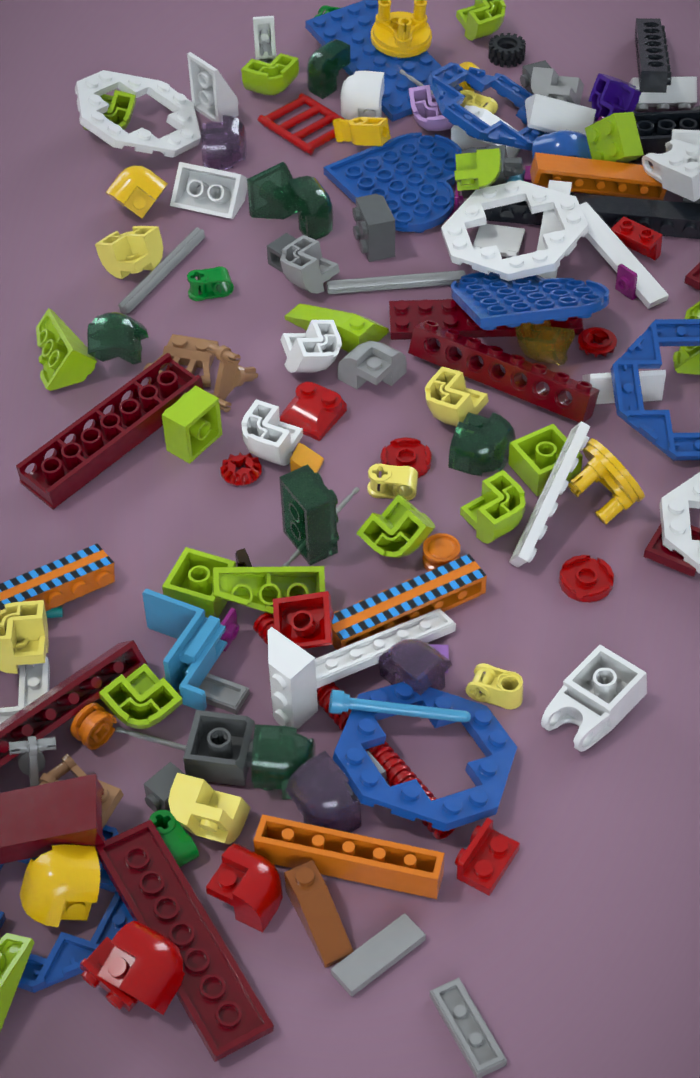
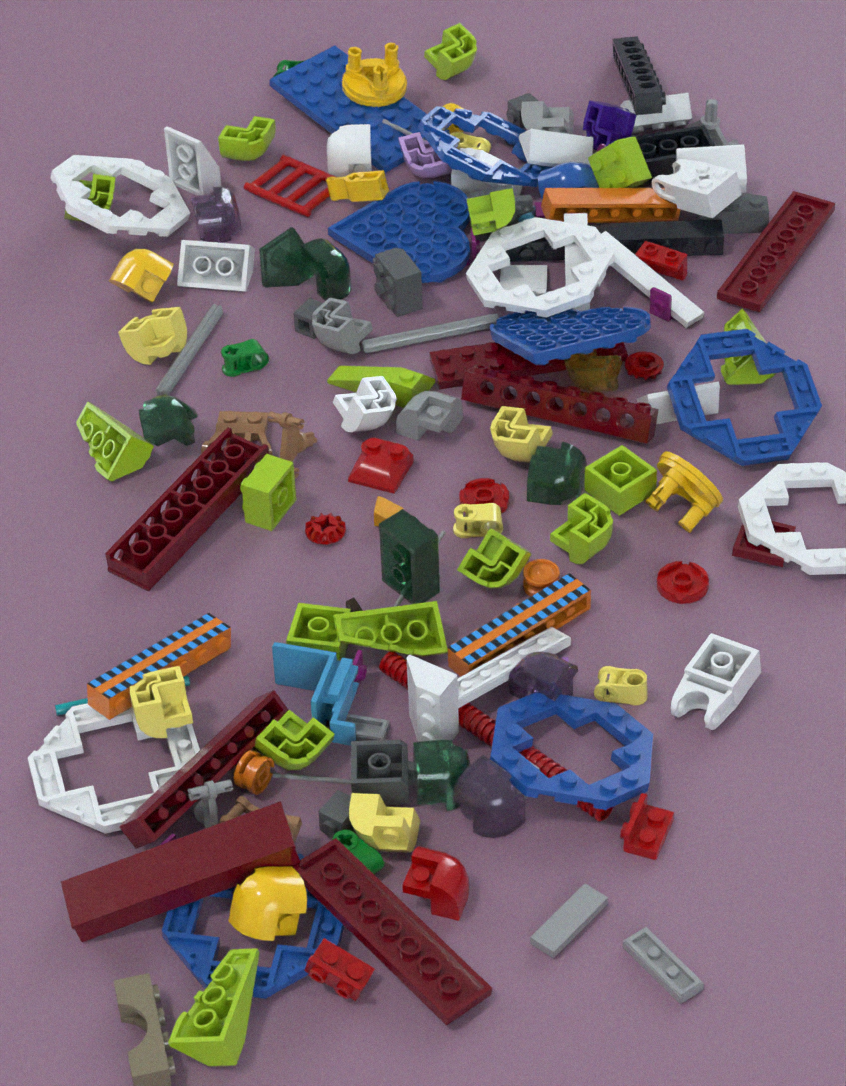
camera: 10 degrees left, 5 degrees down
(144, 966) = (367, 953): red brick -> none
(264, 38) = (233, 104): white slope -> none
(267, 435) = (345, 494): white brick -> none
(305, 619) = (434, 645): red slope -> none
(317, 913) = (505, 893): dark orange slope -> none
(325, 65) = (302, 123): clear green brick -> none
(342, 702) = (486, 714): dark azure piece -> none
(351, 856) = (526, 843): orange brick -> none
(506, 50) = (485, 86): black tyre -> none
(547, 503) = (632, 518): white plate -> none

